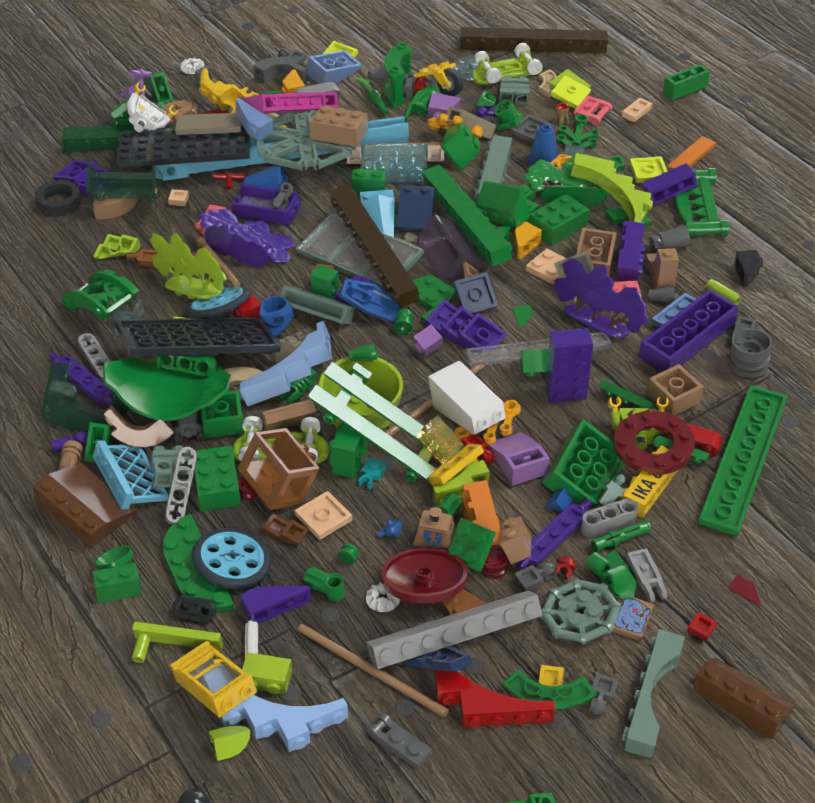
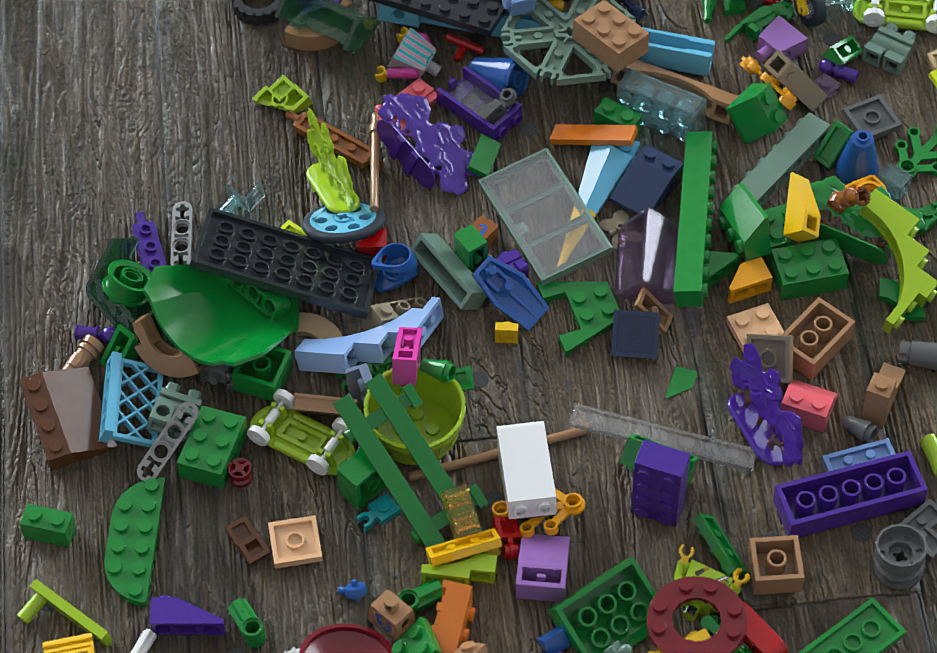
camera: 30 degrees right, 10 degrees up
(78, 395) = (126, 283): none -> green wheel
(101, 281) = (244, 165): green fence -> none
(115, 557) = (60, 496): green piece -> none
(178, 197) = (386, 52): light nougat plate -> none
(195, 608) = (106, 591): black plate -> none
(197, 193) = (410, 58): none -> torso
(220, 576) = (177, 578): wedge -> none
(284, 474) = (272, 477): dark orange piece -> none
(290, 233) = (483, 156): none -> green tile
(302, 388) = (356, 379): none -> sand blue bracket
(336, 351) = (406, 356): none -> dark pink slope
(348, 553) = (292, 599): green bush -> none
(369, 190) = (593, 134): none -> orange tile
(374, 246) = (557, 219): dark brown brick -> none
(384, 327) = (506, 332): none -> yellow plate
(404, 321) = (534, 333): green wheel -> none
(427, 341) = (540, 373): medium lavender brick -> none
(463, 327) = (597, 372): dark purple slope -> none
(507, 115) = (850, 87): green piece -> none
(521, 148) = (833, 144): none -> green tile
(539, 186) = (802, 213): none -> yellow slope
(562, 111) = (924, 106): pearl gold piece -> none
(562, 164) = (849, 198): none -> dark orange connector
(630, 252) = (859, 356): dark purple wedge -> none

